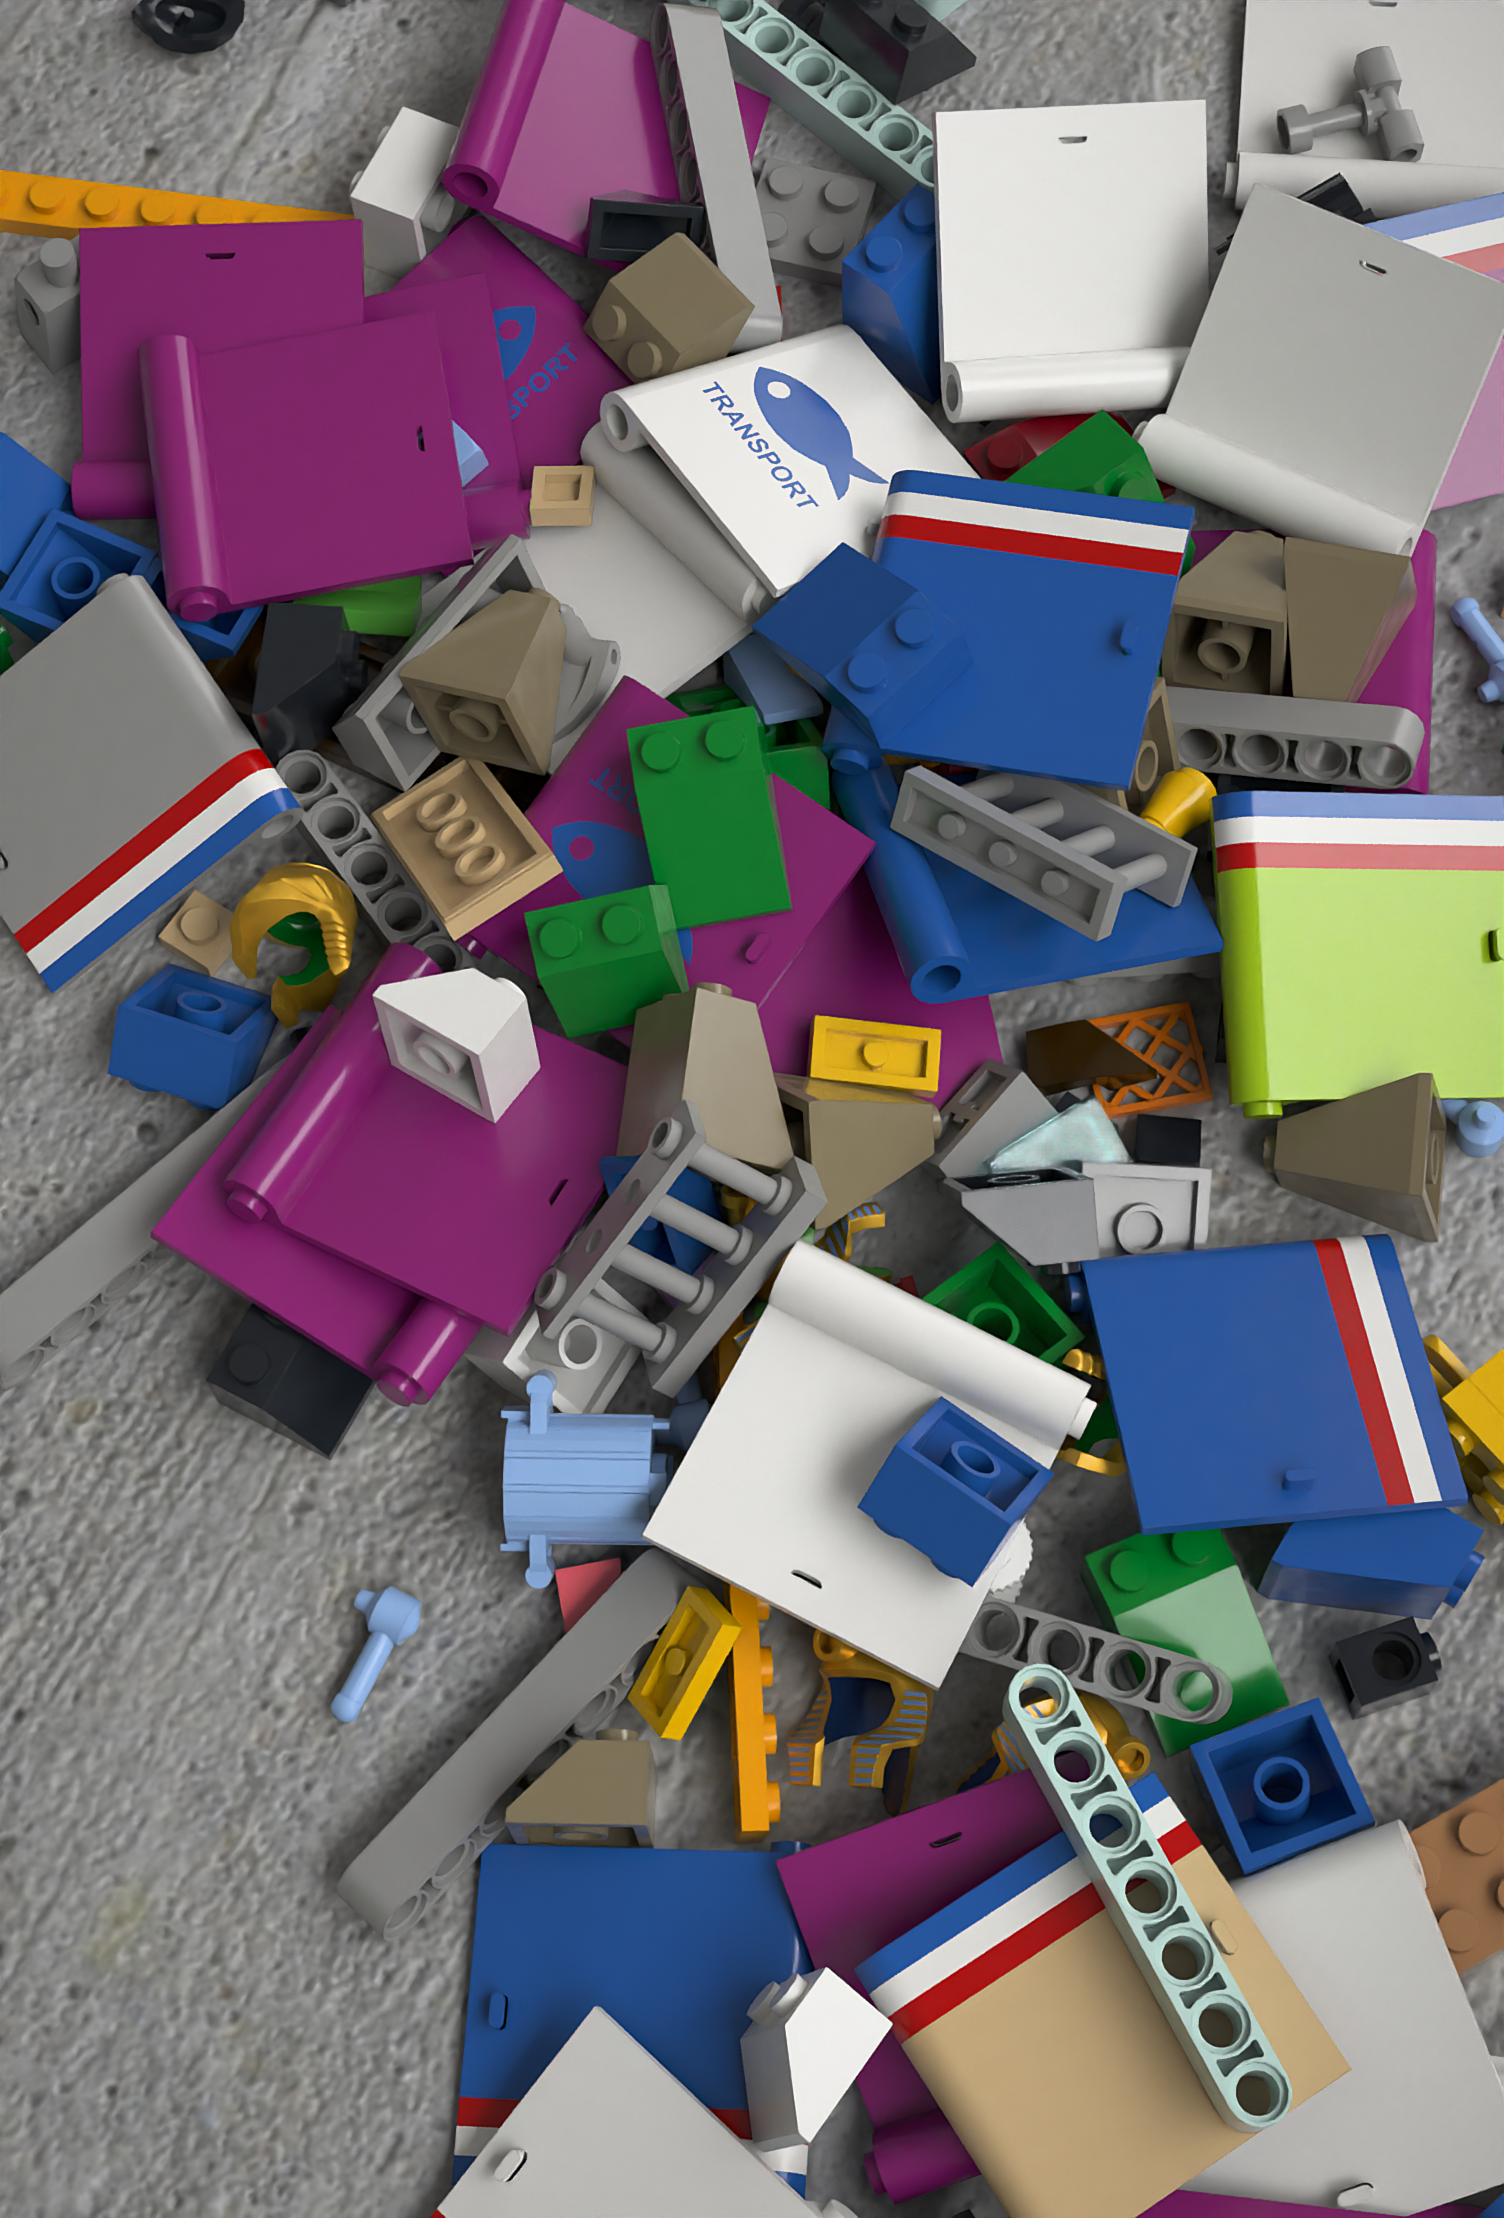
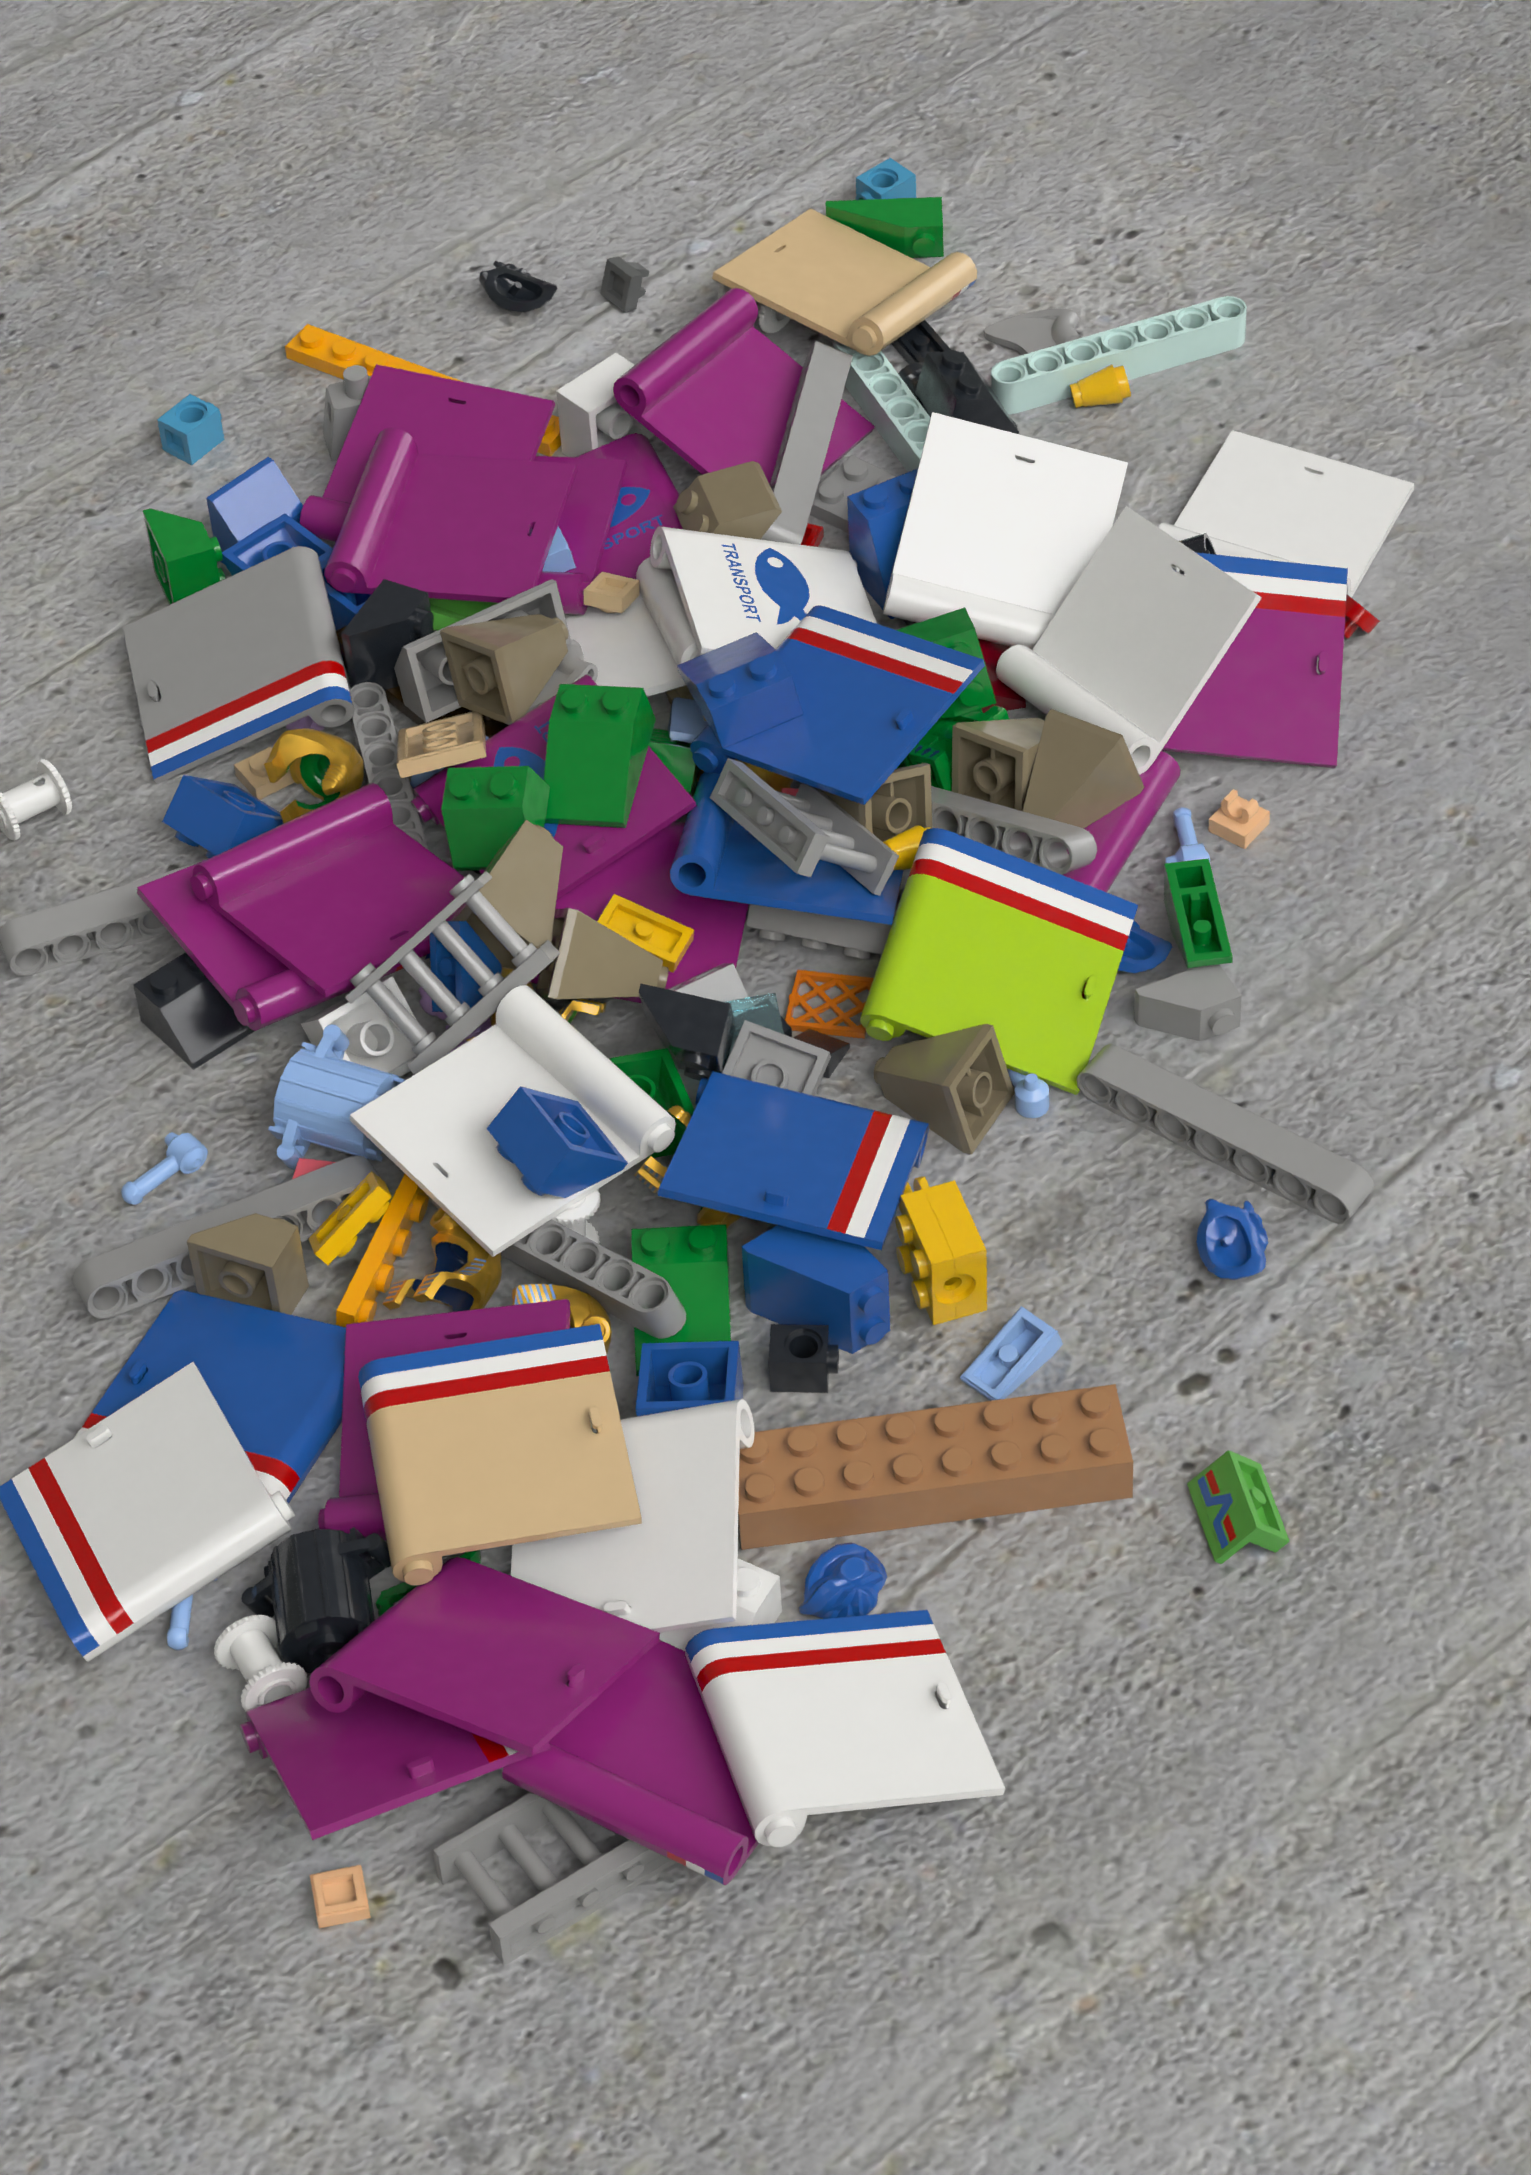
camera: 20 degrees right, 20 degrees down
(461, 1037) = (379, 831): white slope -> none
(632, 223) = (721, 450): black slope -> none
(804, 2054) = (311, 1411): white slope -> none
(1081, 1055) = (789, 982): dark brown slope -> none
(1144, 1932) = (552, 1350): light aqua beam -> none
(1374, 113) = (1272, 524): light grey bar -> none

